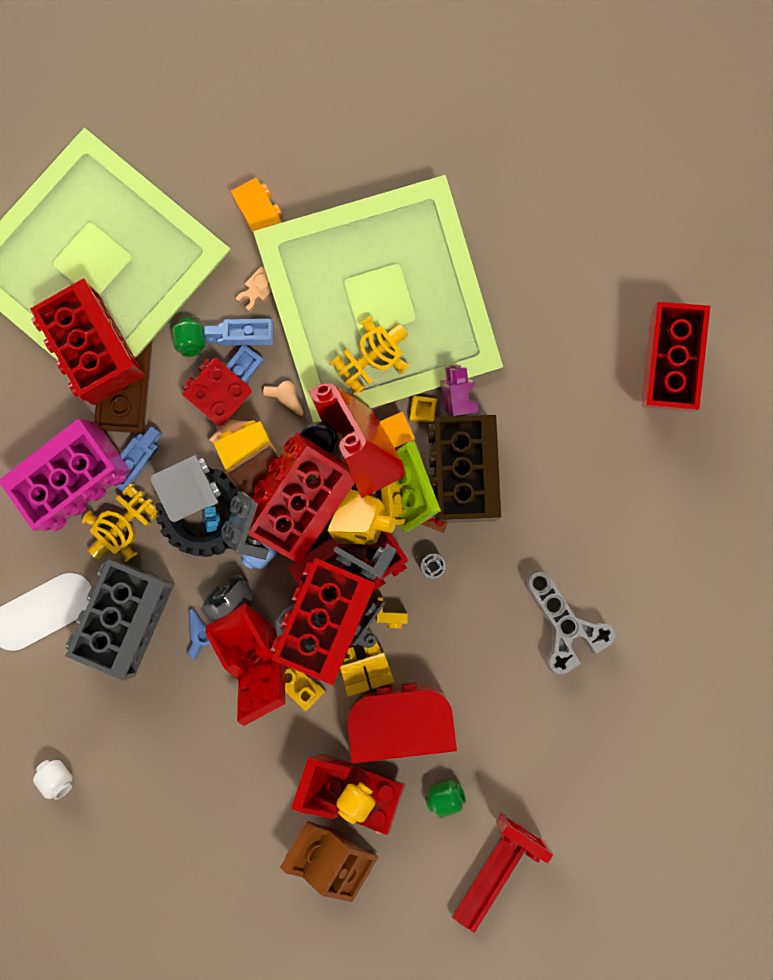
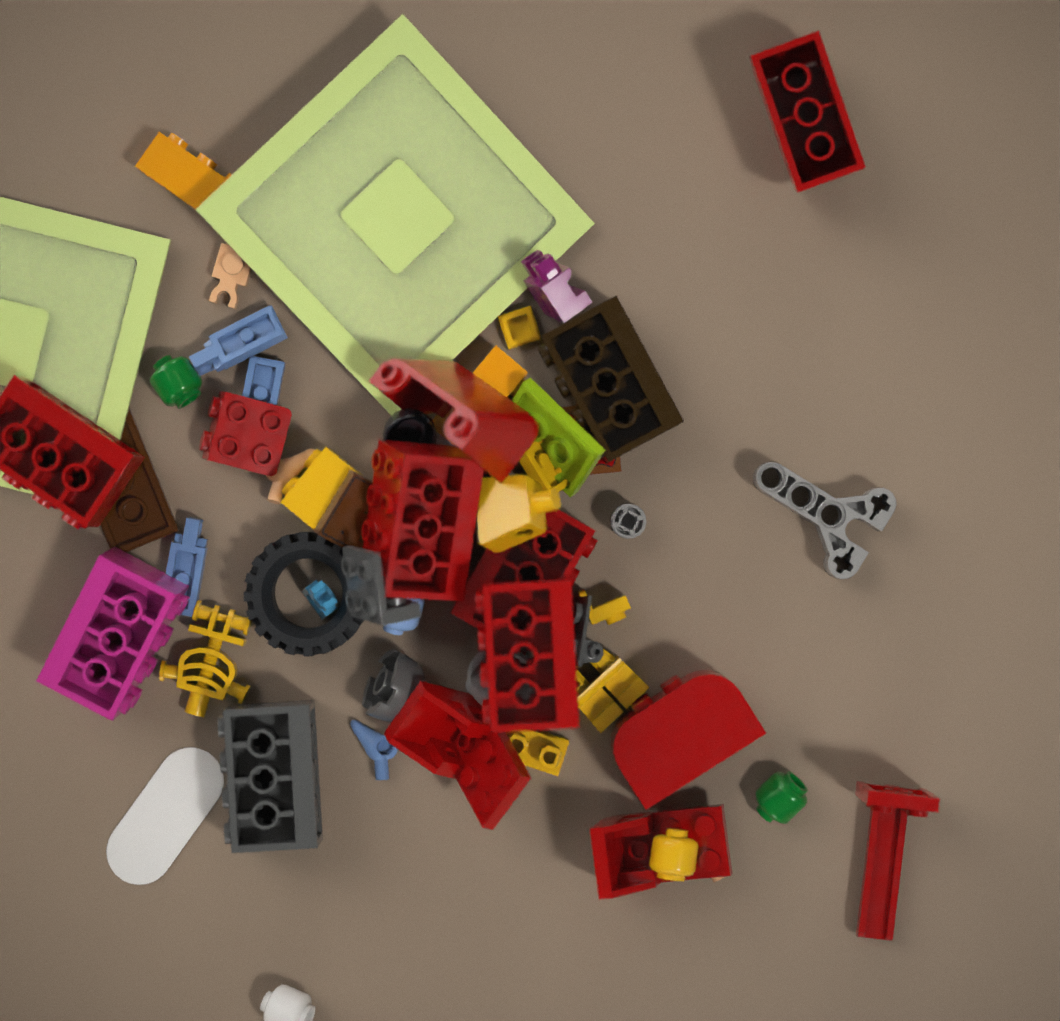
camera: 30 degrees left, 5 degrees up
(185, 488) = (274, 575): light grey bracket -> none
(286, 395) = (336, 394): light nougat animal -> none
(329, 862) = (675, 942): dark orange bracket -> none
(381, 559) = (563, 546): dark grey bracket -> none
(390, 340) = (437, 261): yellow piece -> none

